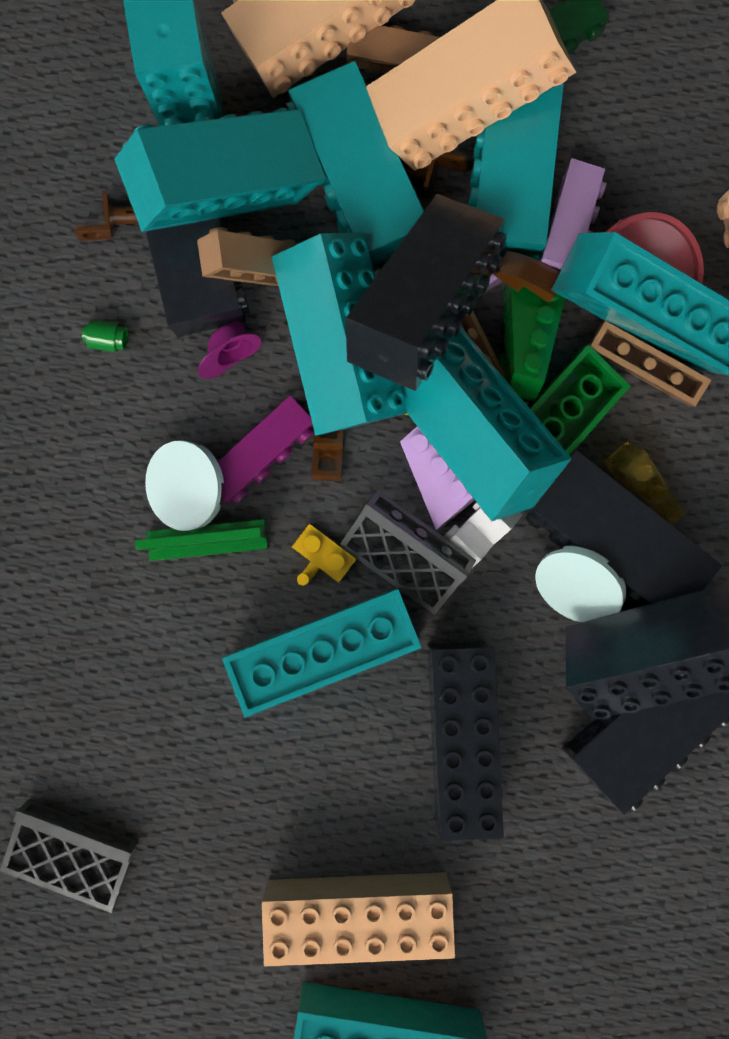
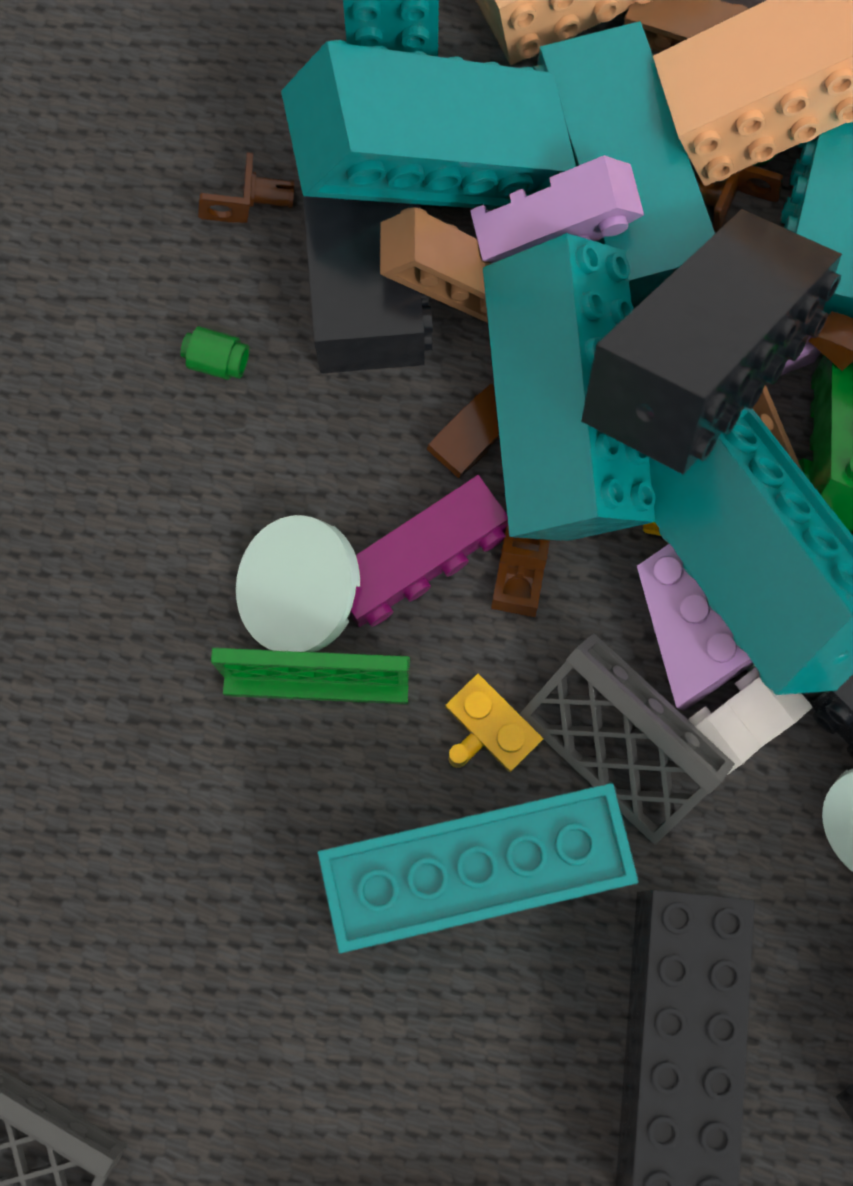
camera: 10 degrees right, 10 degrees down
(226, 348) = (393, 395): magenta piece -> none
(279, 368) = (468, 434): none -> reddish brown slope
(326, 209) = (583, 201): none -> lavender wedge

